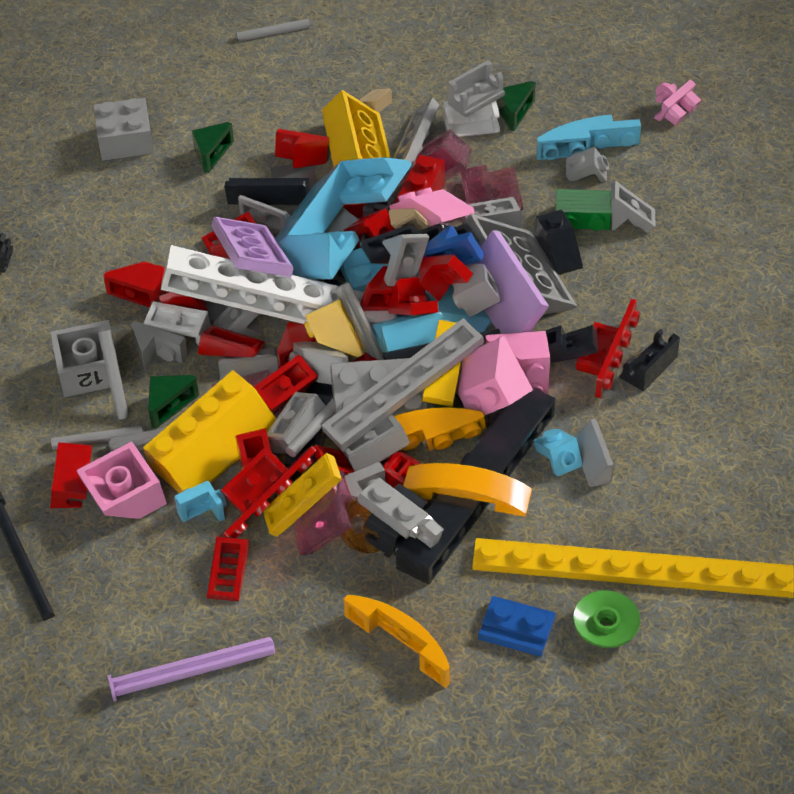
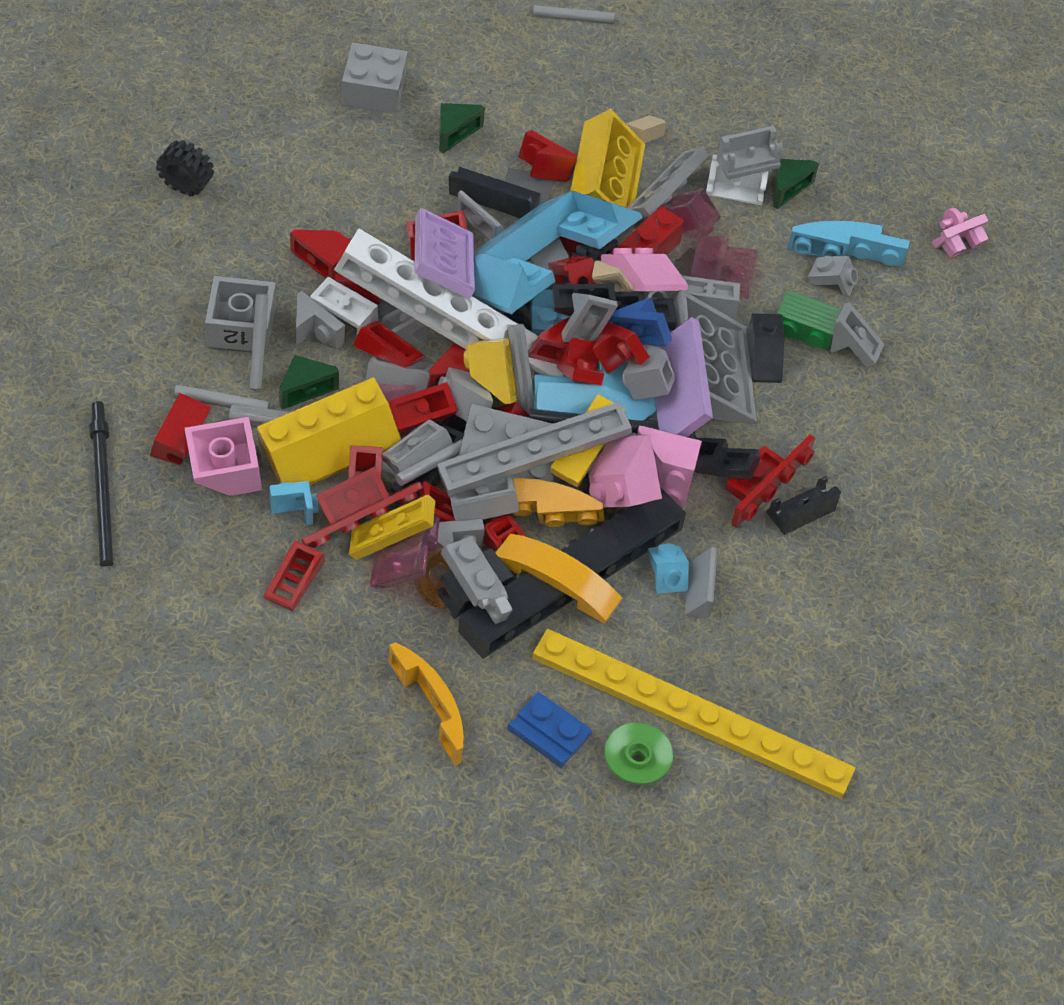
camera: 10 degrees right, 5 degrees up
(190, 667) = (220, 660): lavender axle -> none

